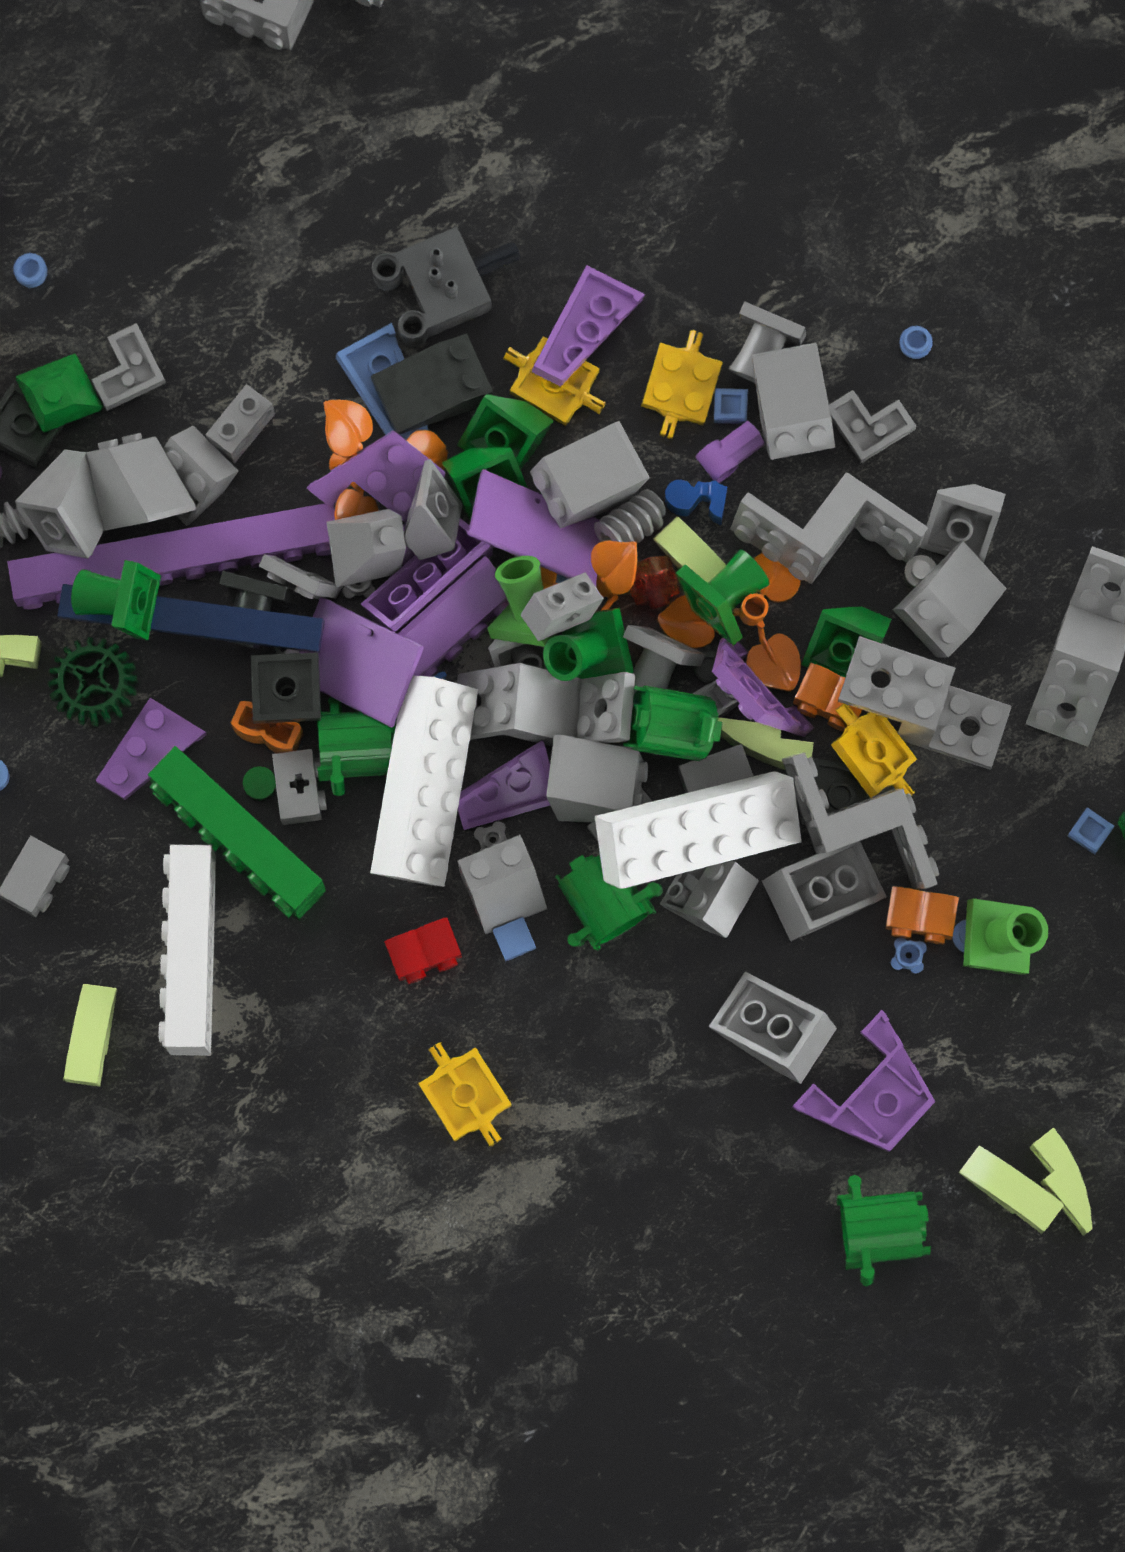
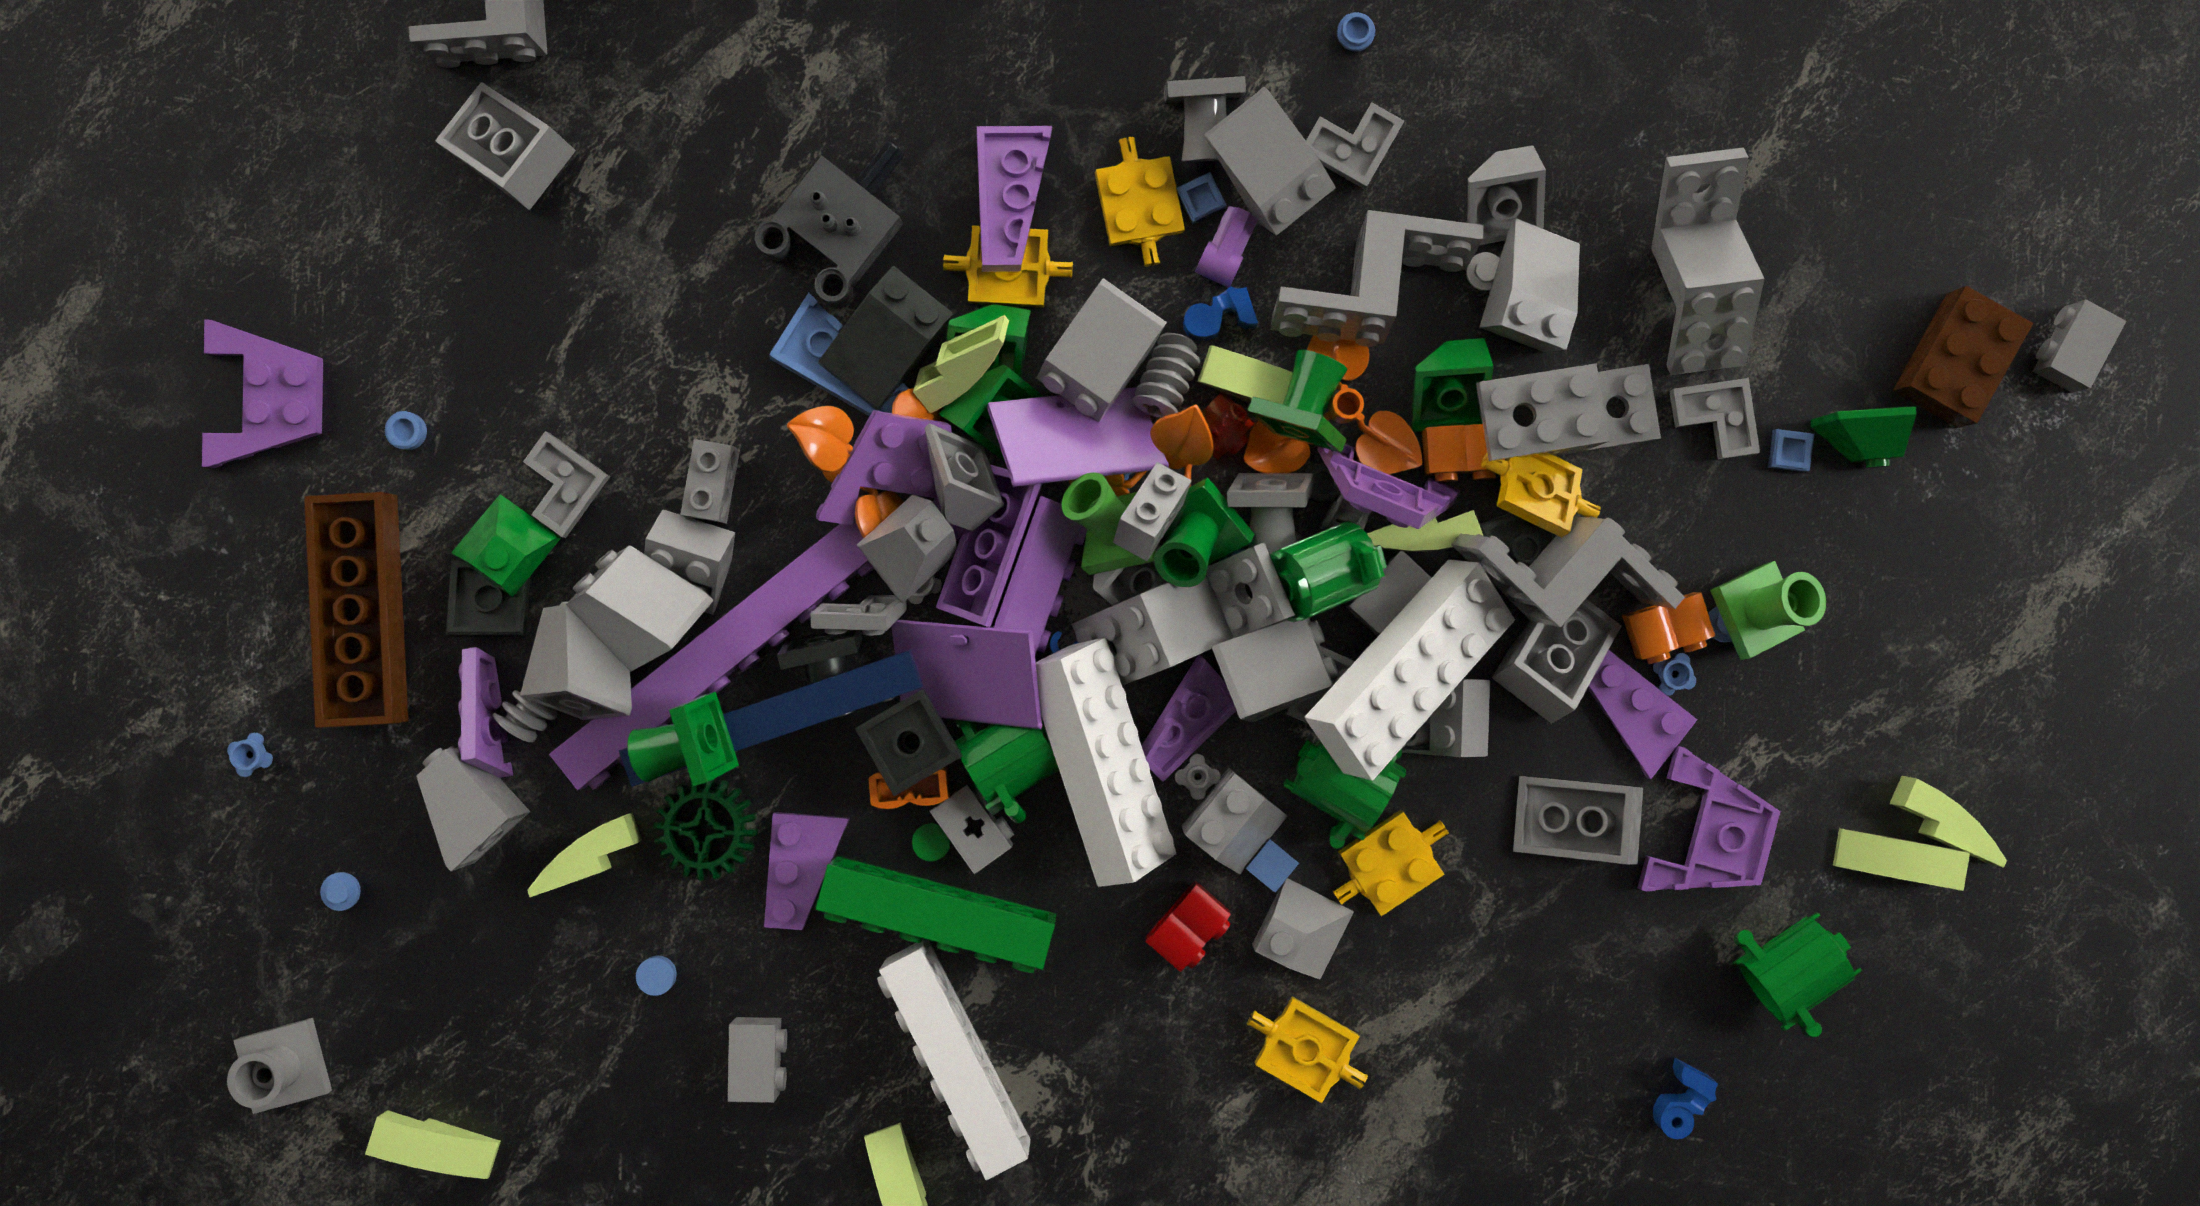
camera: 30 degrees left, 10 degrees up
(223, 100) = (506, 145): none -> light grey slope
(476, 431) = (960, 364): none -> yellowish green slope
(511, 1000) = (1302, 929): none -> light grey slope
(608, 985) = (1391, 862): none -> yellow plate
(727, 1295) = (1675, 1111): none -> blue leg
(865, 969) = (1640, 712): none -> medium lavender wing
(1056, 770) = (1724, 405): none -> light grey plate

